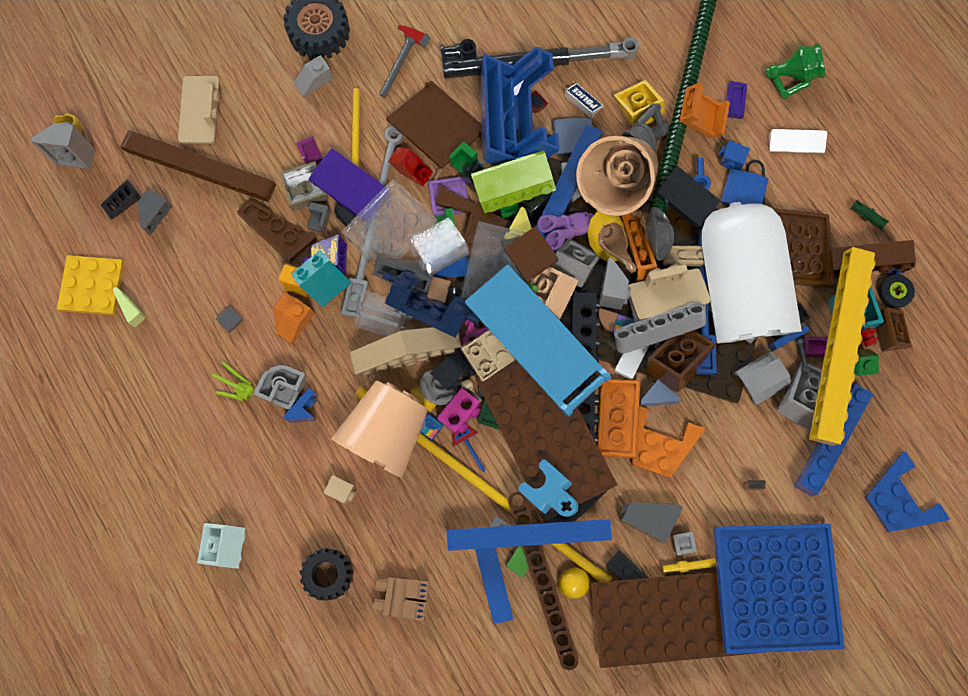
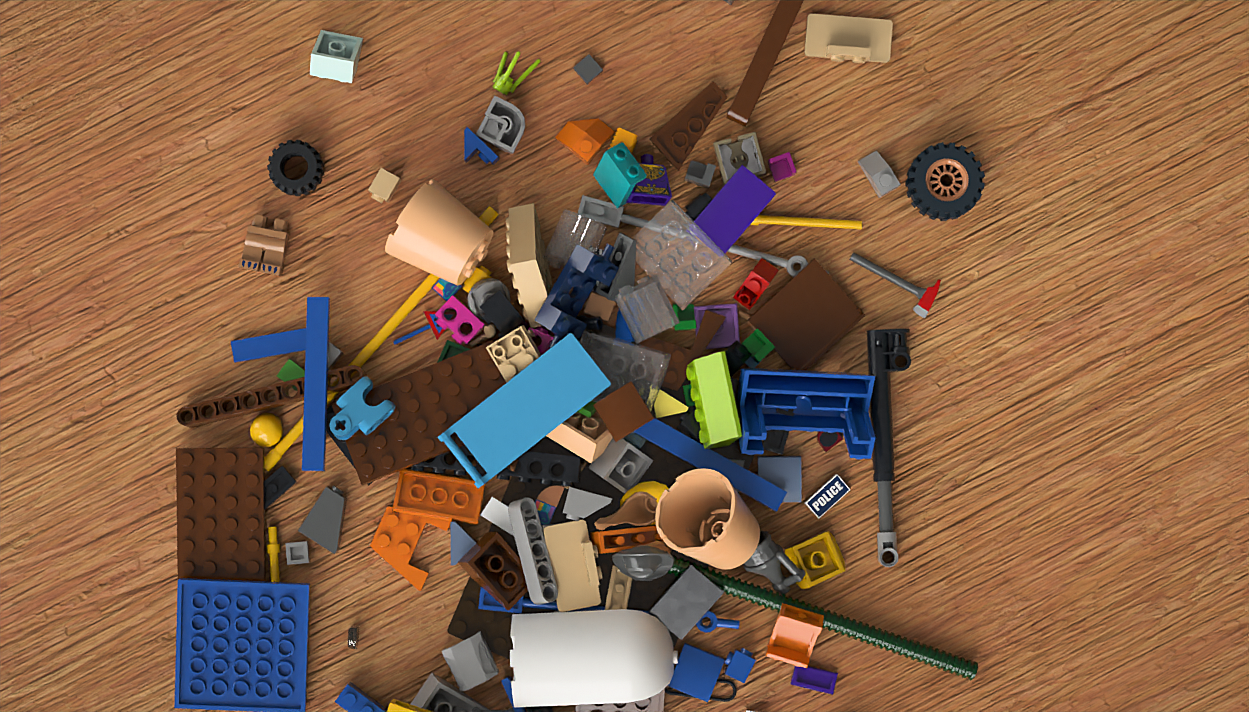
camera: 90 degrees right, 10 degrees up
(569, 226) = (658, 460): medium lavender piece -> none

